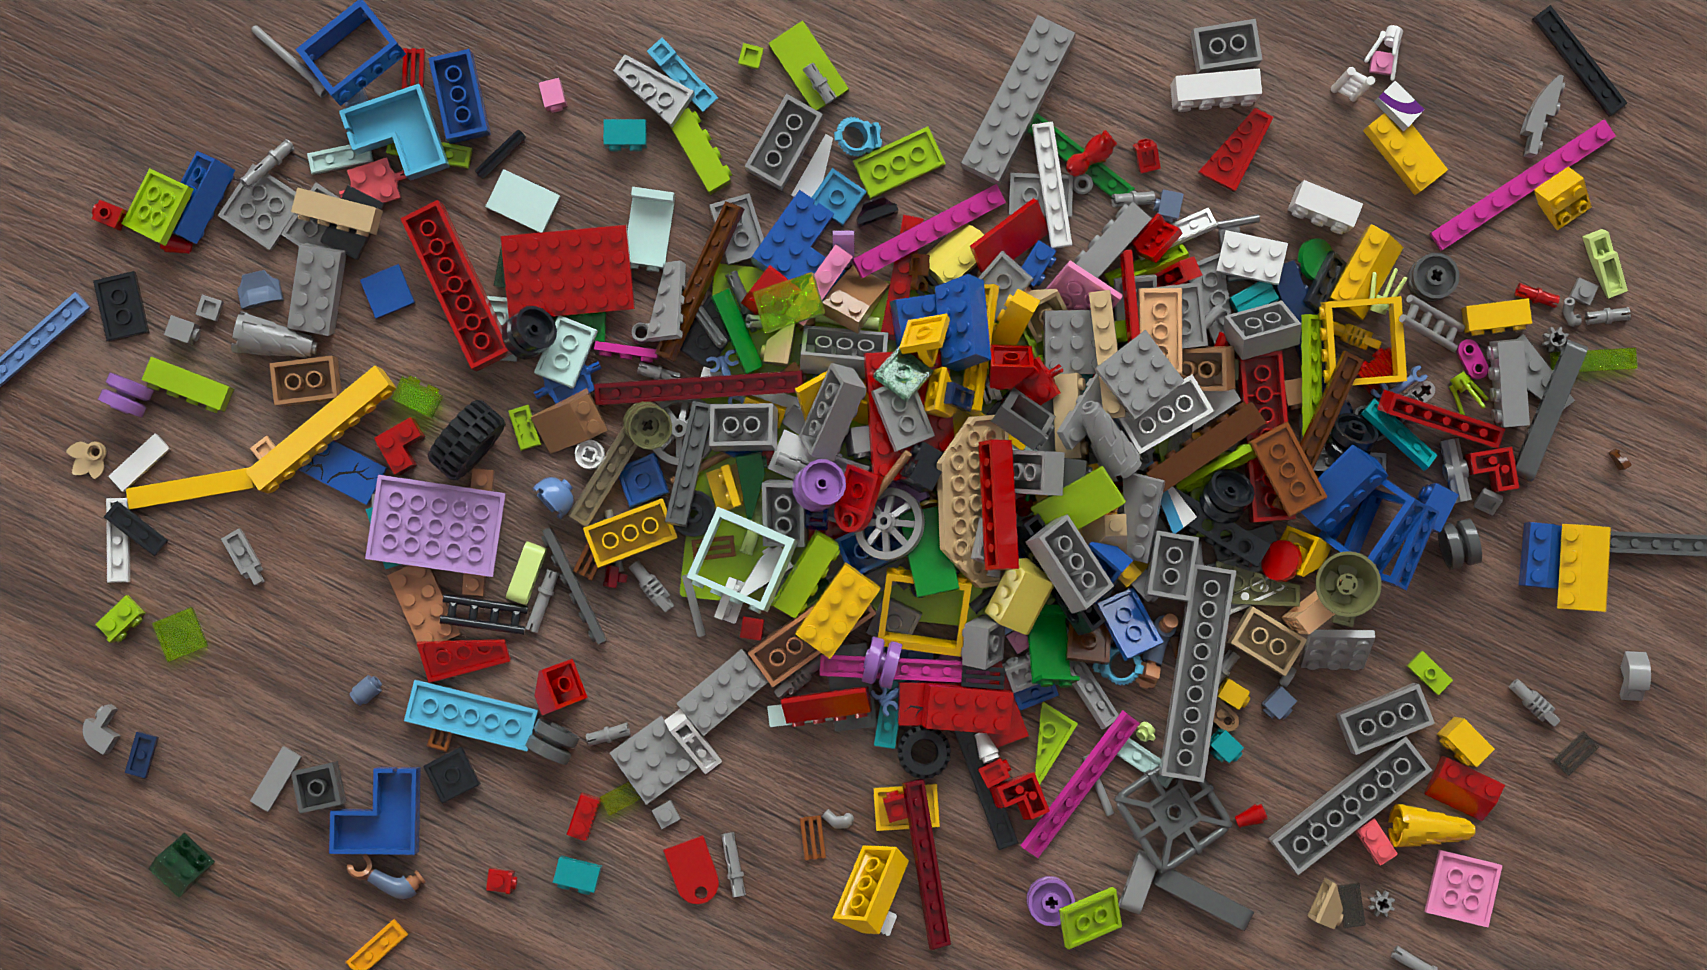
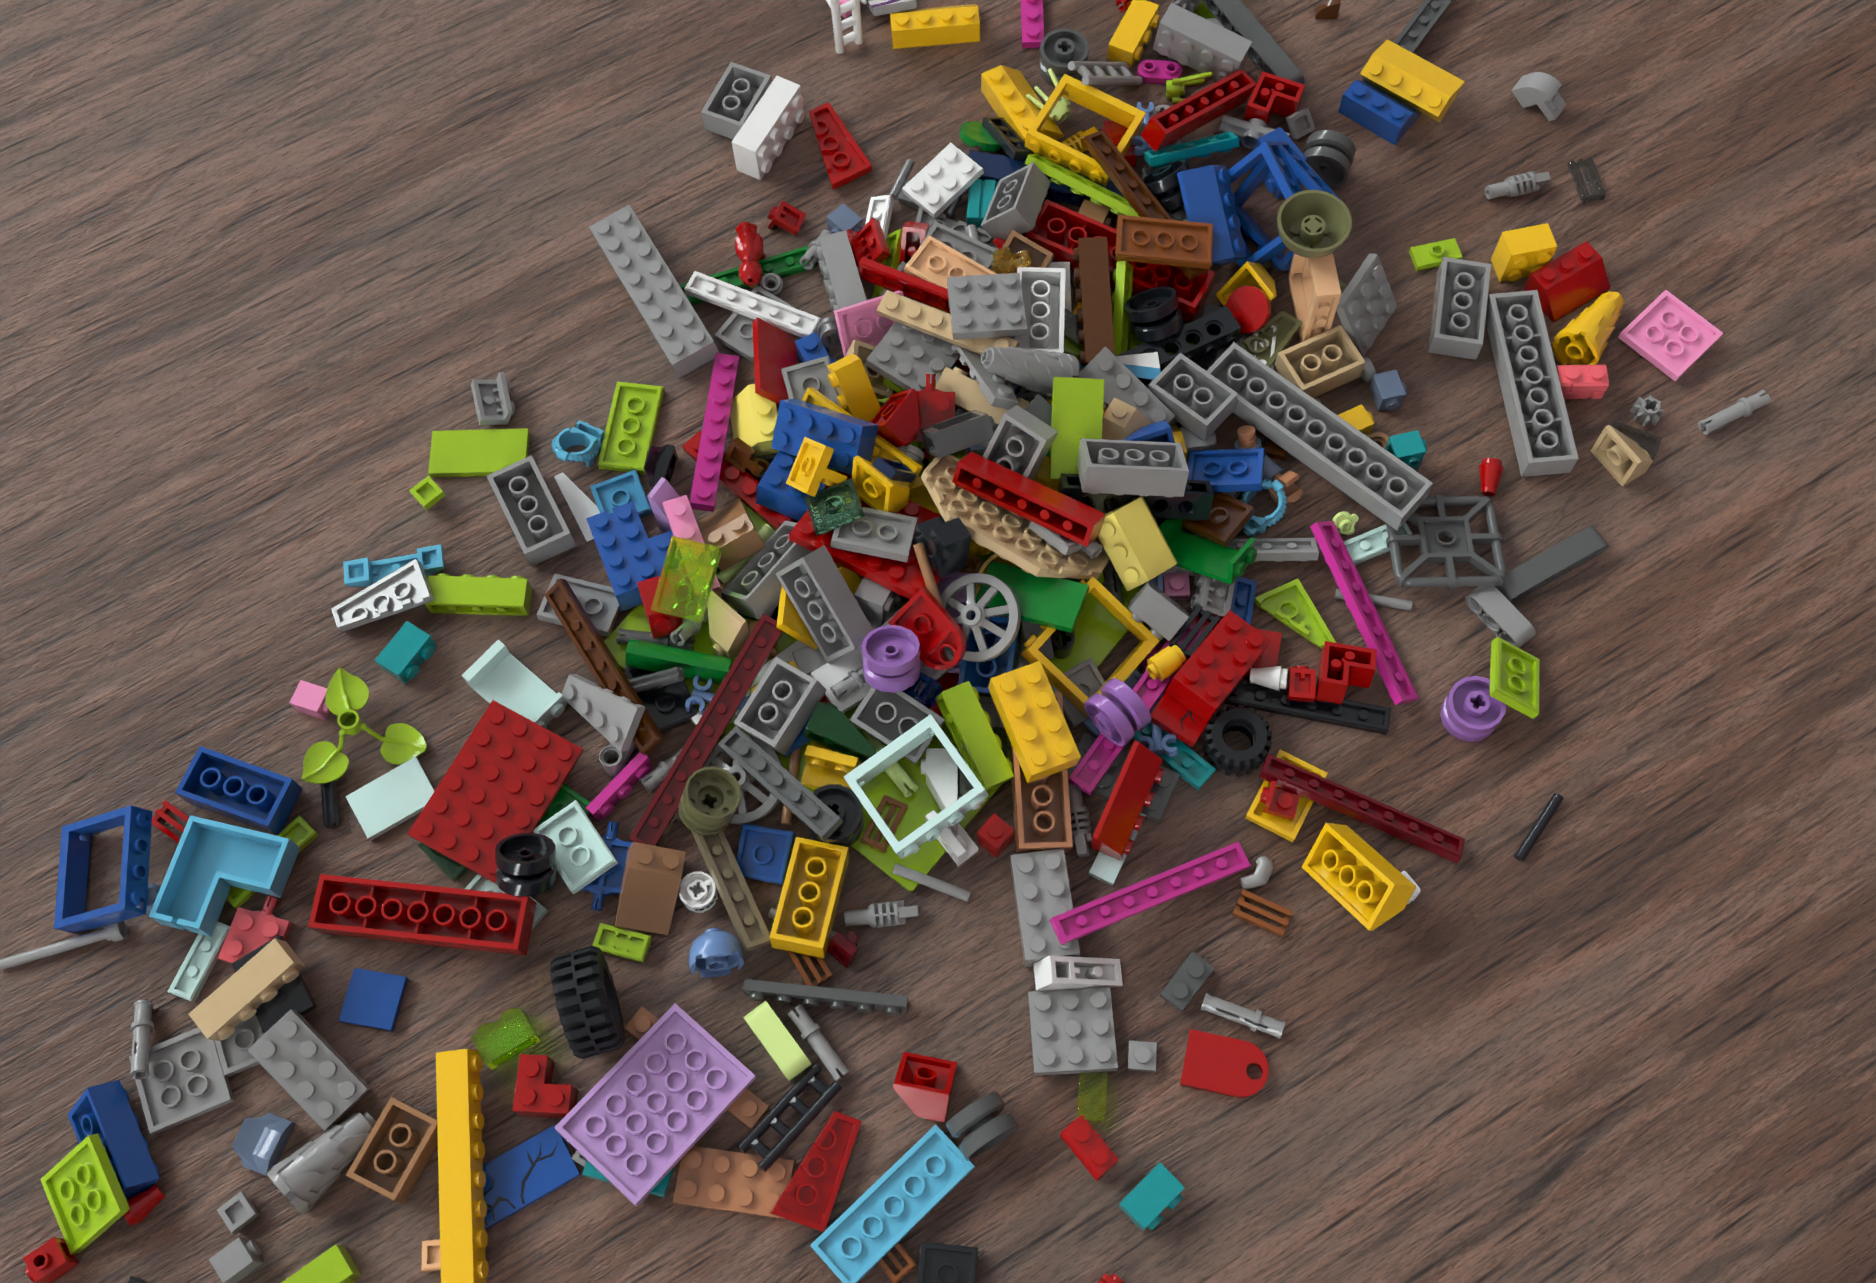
camera: 55 degrees left, 20 degrees down
(569, 118) = (344, 695): none -> lime plant
(608, 734) = (1012, 1063): light grey pin -> none
(734, 814) = (1186, 982): none -> dark grey plate
(774, 757) = (1149, 893): none -> dark pink plate
(819, 83) = (502, 446): light grey pin -> none
(853, 47) = (493, 400): none -> light grey bracket
(944, 672) = (1165, 662): none -> yellow brick
(1058, 263) = (829, 332): none -> flat silver wheel
(1196, 362) = (1006, 262): none -> clear yellow plate
(1324, 207) = (939, 101): white brick -> none

